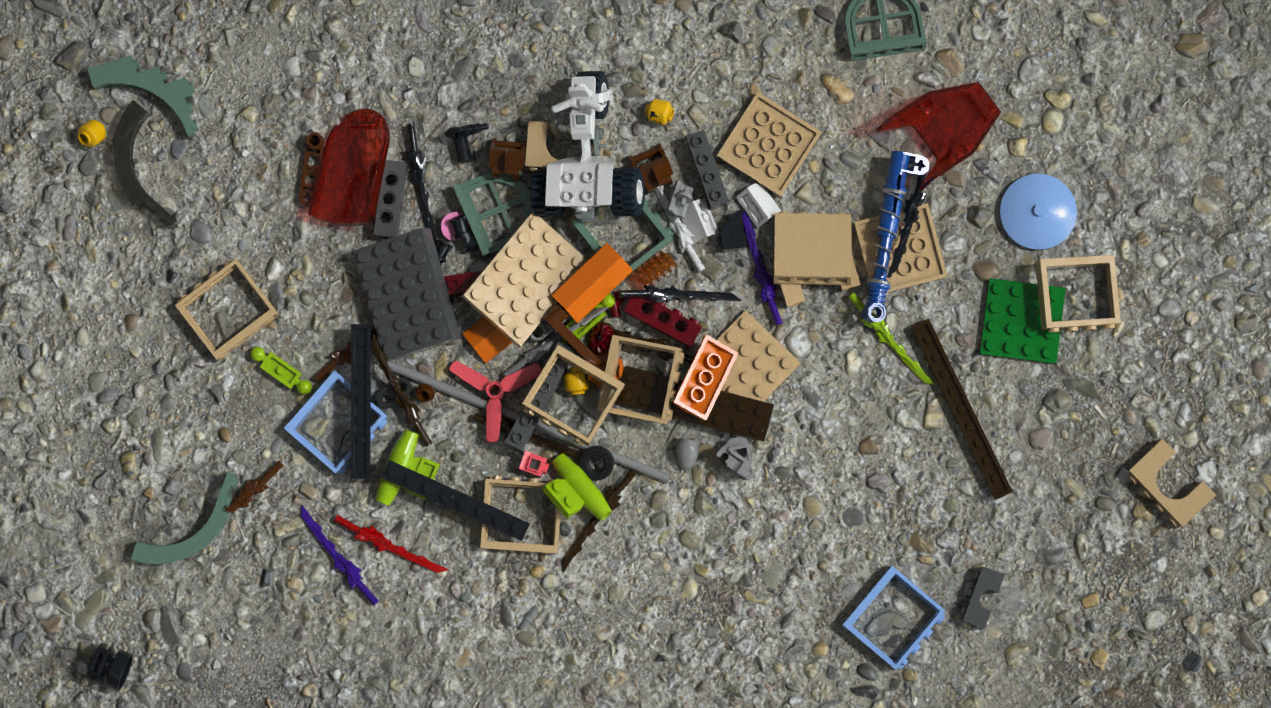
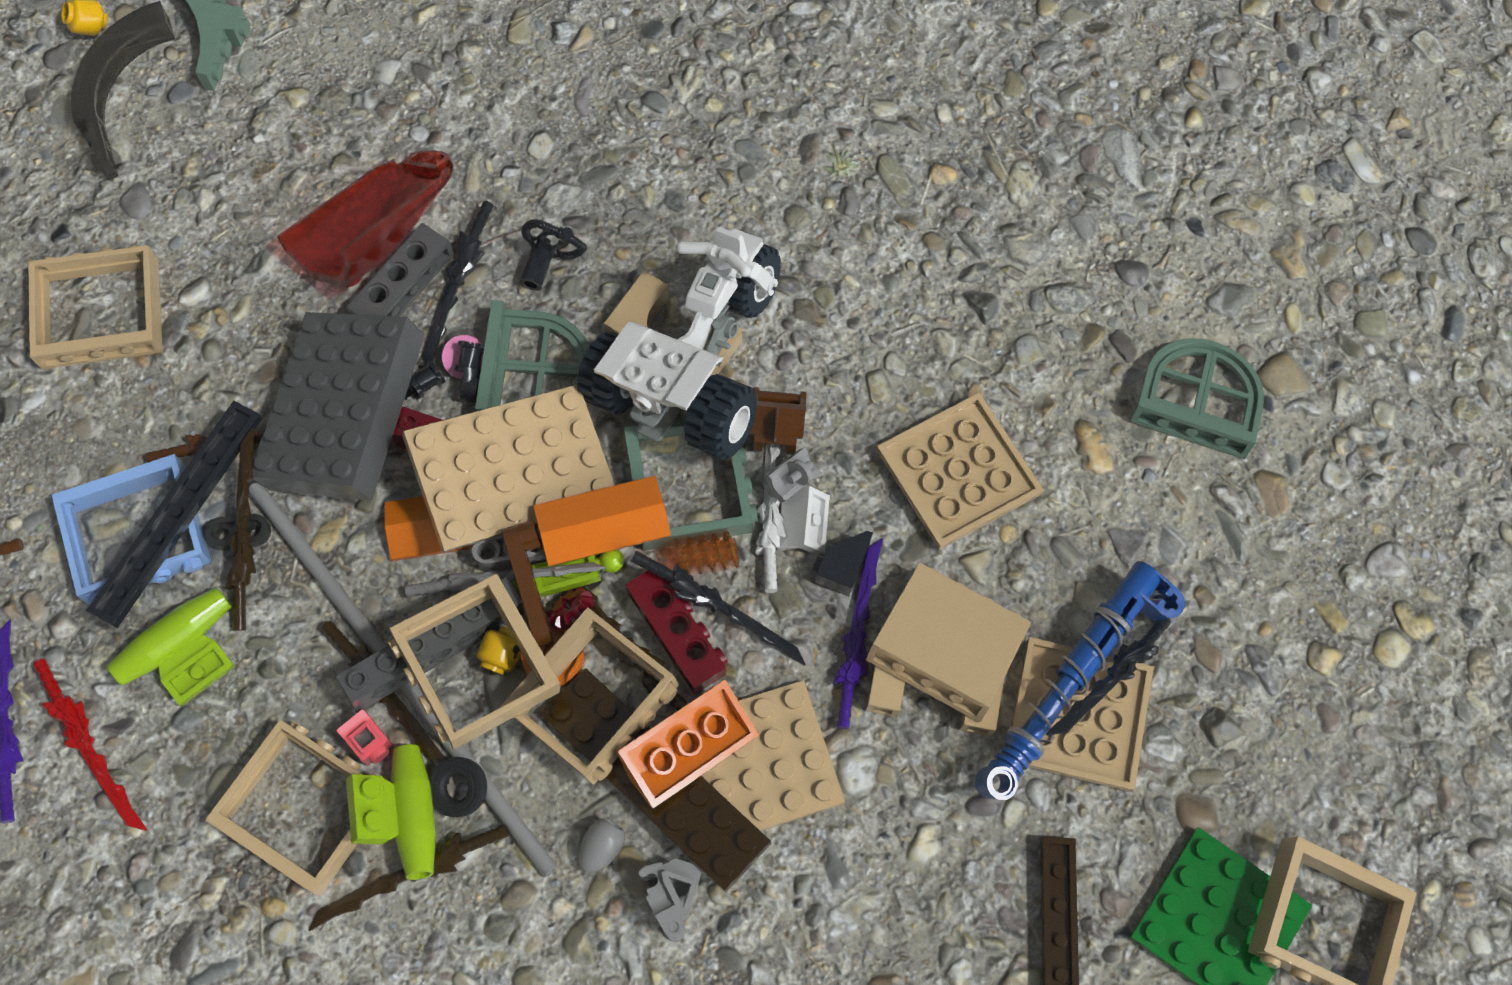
camera: 20 degrees right, 15 degrees down
(281, 370) = (109, 421): lime plate -> none
(310, 170) = (349, 163): reddish brown beam -> none
(422, 395) = (279, 554): reddish brown plate -> none
(455, 500) = (215, 728): black plate -> none
(507, 158) = (583, 303): reddish brown piece -> none
(508, 384) = (366, 582): coral piece -> none
(615, 310) = (617, 578): dark red arm -> none
(659, 111) = (828, 351): yellow head -> none
(707, 170) = (853, 458): dark grey brick -> none
(758, 204) = (900, 541): white panel -> none
(885, 336) = (993, 831): lime sword -> none
(949, 123) = (1235, 566): clear red windscreen -> none
(1038, 212) = (1315, 768): light blue dish -> none

